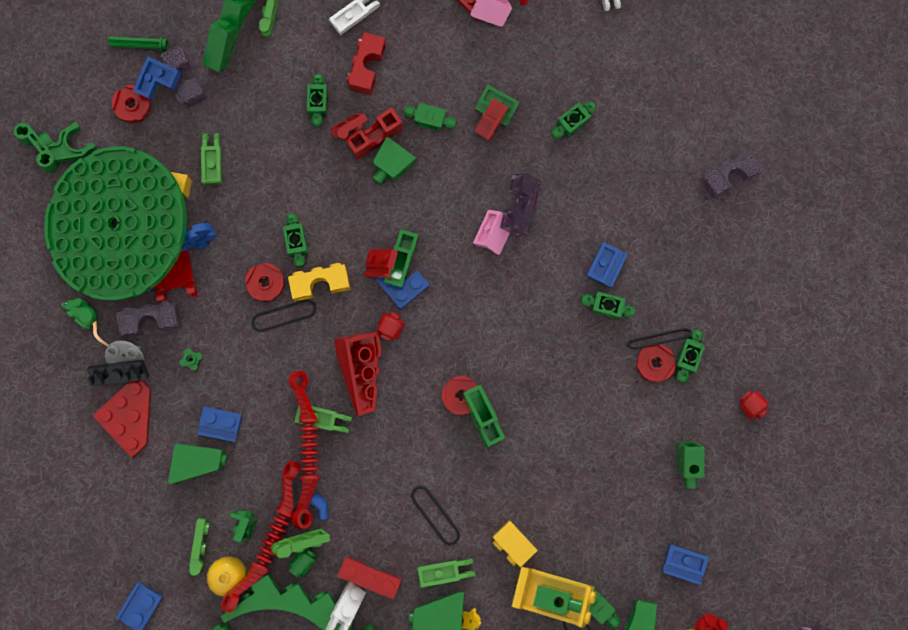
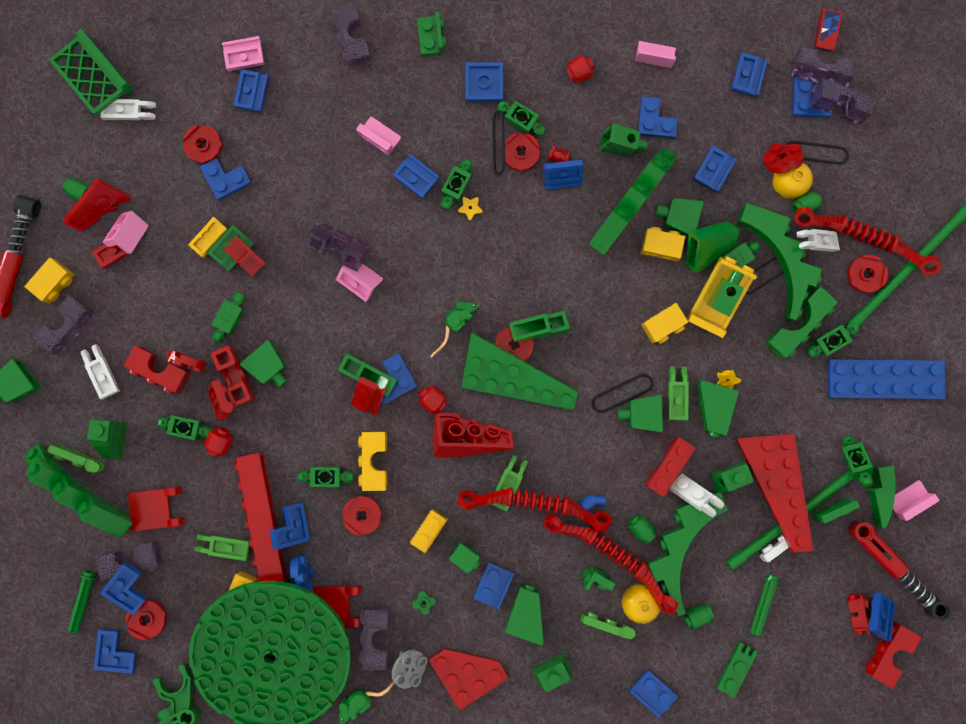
camera: 75 degrees left, 5 degrees up
(91, 77) = (109, 657): none -> blue plate
(117, 372) = (422, 678): black plate -> none
(143, 499) = (553, 673): none -> green torso
(235, 87) = (152, 509): none -> red flag
(237, 222) = (295, 530): none -> blue plate
(242, 389) = (465, 556): none -> green brick
(244, 188) = (260, 516): none -> red brick
(261, 349) = (428, 530): none -> yellow brick
(280, 308) = (406, 499): black piece -> none
(294, 32) = (107, 437): none -> green slope
(299, 542) = (624, 527): bright green hinge -> none
(309, 133) = (218, 442): none -> red head
(381, 81) = (180, 359): none -> red plate
(418, 540) = (644, 414): none -> green torso
(429, 394) = (507, 375): none -> green wing
(474, 334) = (457, 319): none -> green animal
(503, 82) = (208, 237): none -> yellow plate
(557, 86) = (222, 183): none -> blue plate
(563, 128) = (260, 163): green piece -> none
(583, 324) = (470, 212): none -> yellow plate
(589, 48) = (202, 133): none -> red plate
(595, 525) = (662, 244): none -> yellow brick
(605, 573) = (710, 244): none -> green slope
(628, 538) = (680, 215): none -> green torso
(633, 484) = (633, 200): none -> green arch
(639, 221) = (379, 135): none -> bright pink panel
(642, 409) = (563, 174): none -> blue plate
(653, 92) = (251, 91): none -> blue plate
(660, 402) = (559, 155): none -> red bush
(687, 77) = (243, 53): none -> bright pink plate
(716, 490) = (651, 124): none -> blue plate
(717, 311) = (483, 81): none -> blue plate
(750, 250) = (430, 35): none -> green bracket
(789, 479) = (655, 54): none -> bright pink panel
(792, 581) = (749, 74): none -> blue plate

